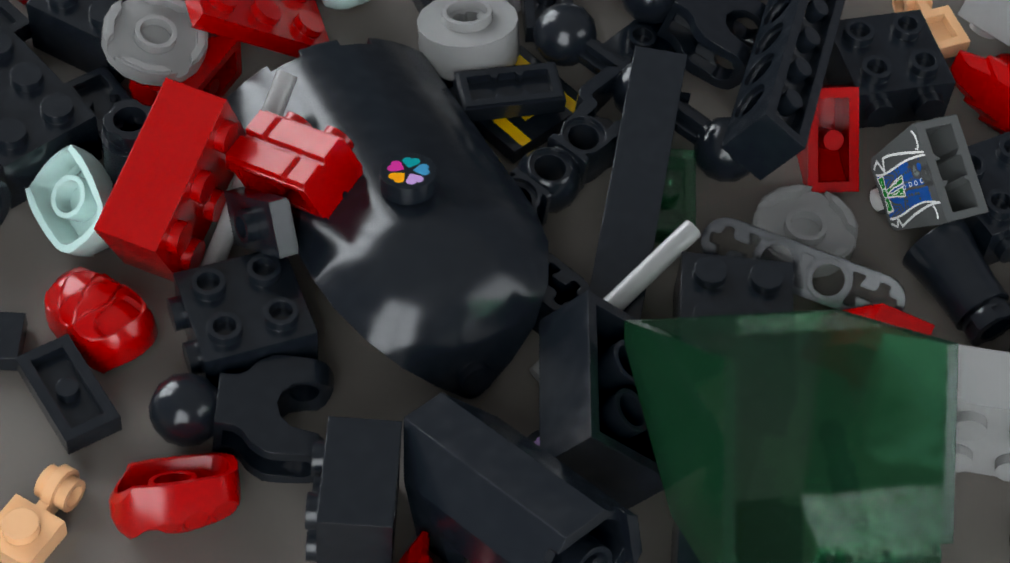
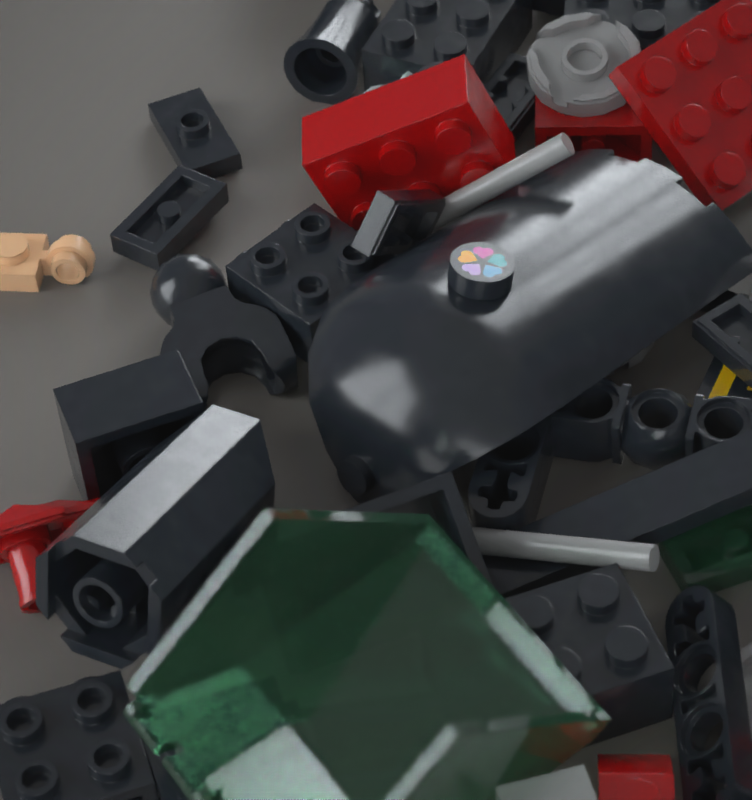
camera: 75 degrees right, 5 degrees down
(101, 317) = (265, 196): red piece -> none
(175, 493) = (95, 324): red piece -> none
(295, 161) = (459, 196): red brick -> none

